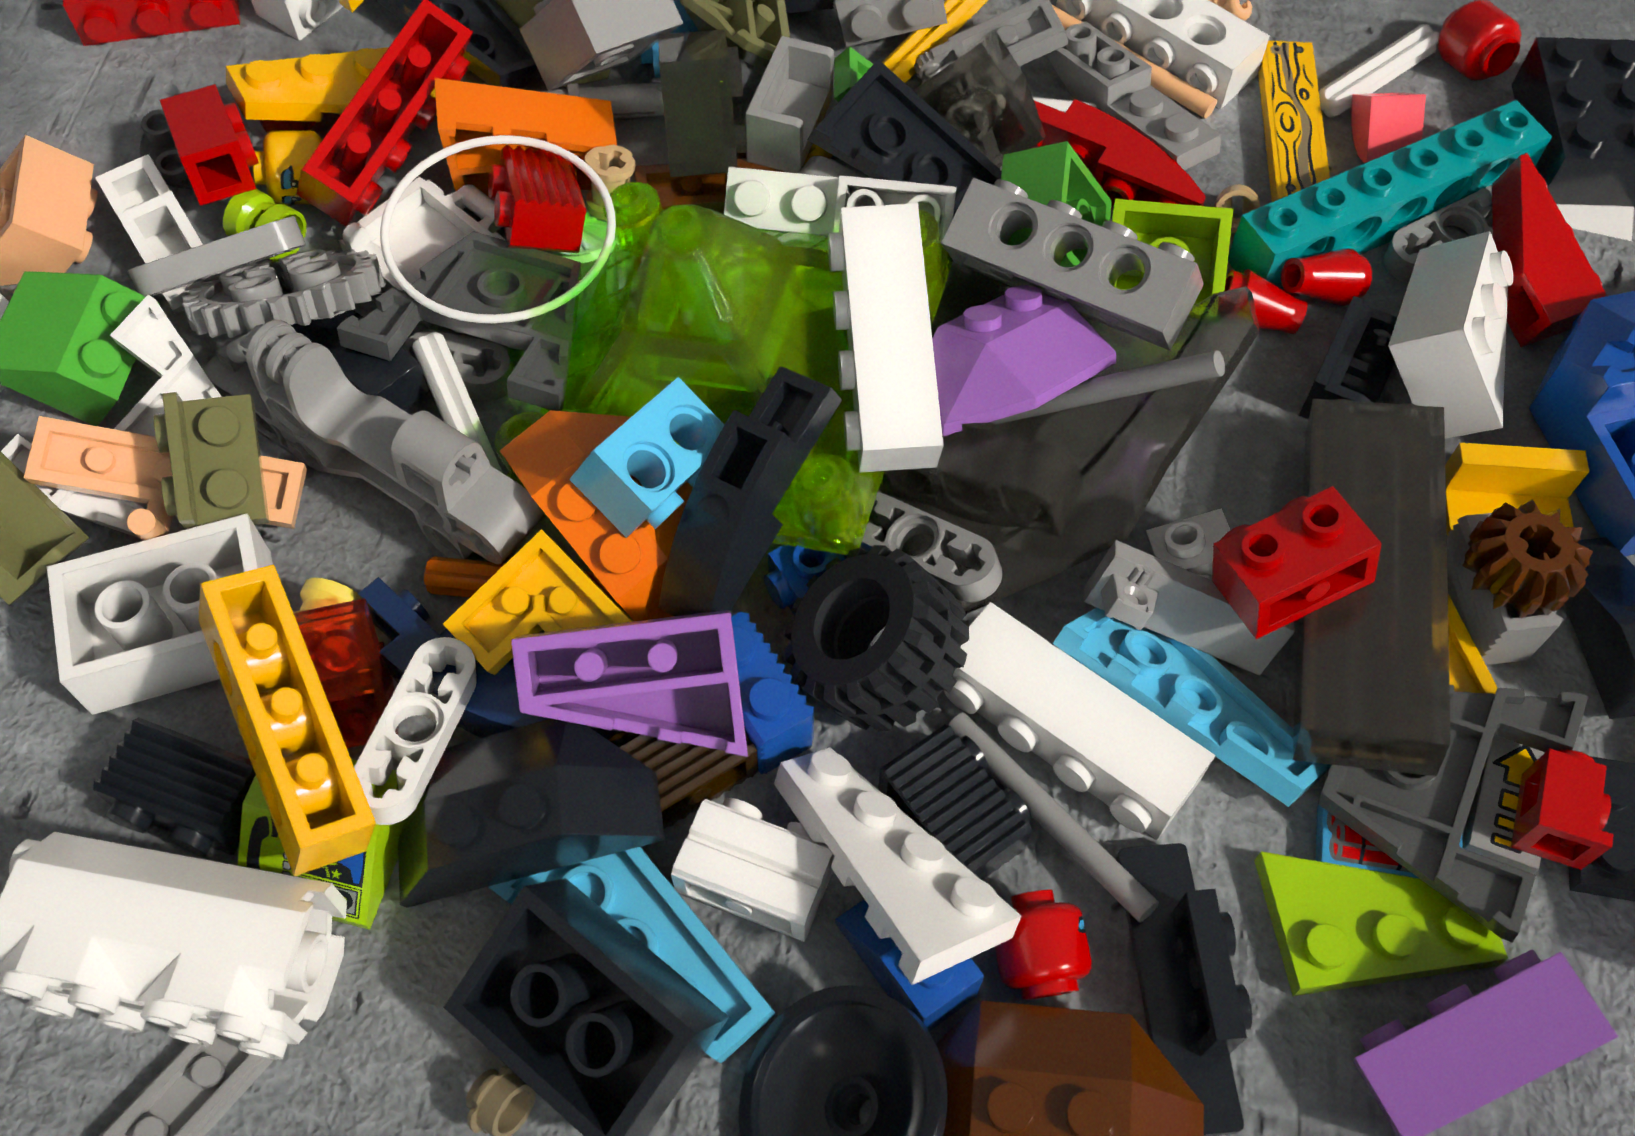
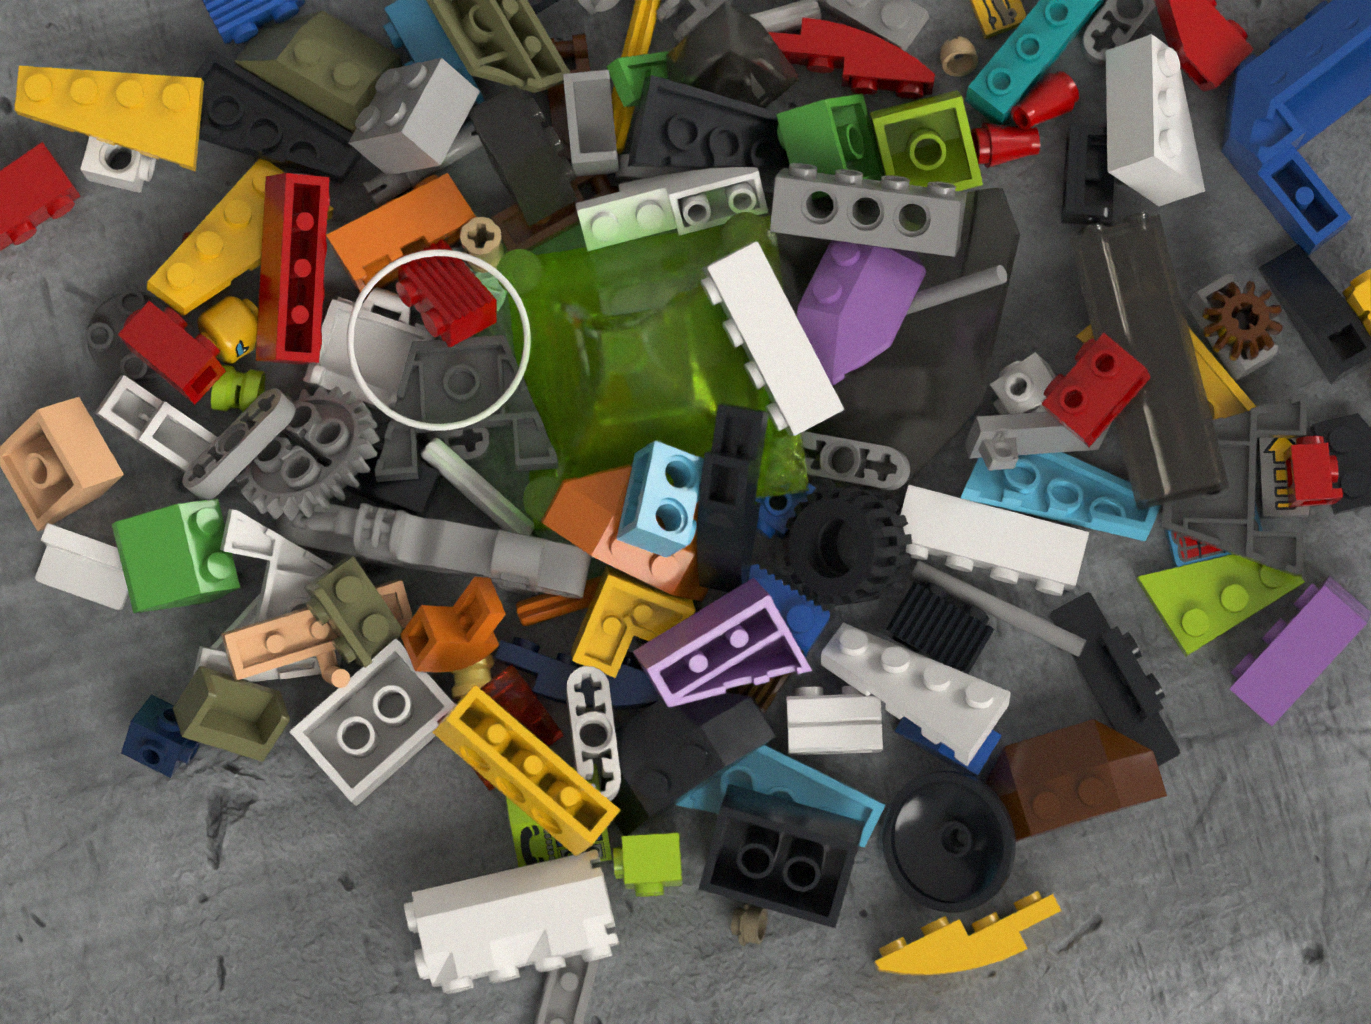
camera: 20 degrees left, 20 degrees up
(177, 786) = (453, 828): black brick -> none
(316, 540) = (456, 635): none -> orange brick
(399, 939) = (649, 863): none -> lime brick
(1046, 949) = (1031, 696): red head -> none
(1489, 475) = (1226, 238): yellow panel -> none

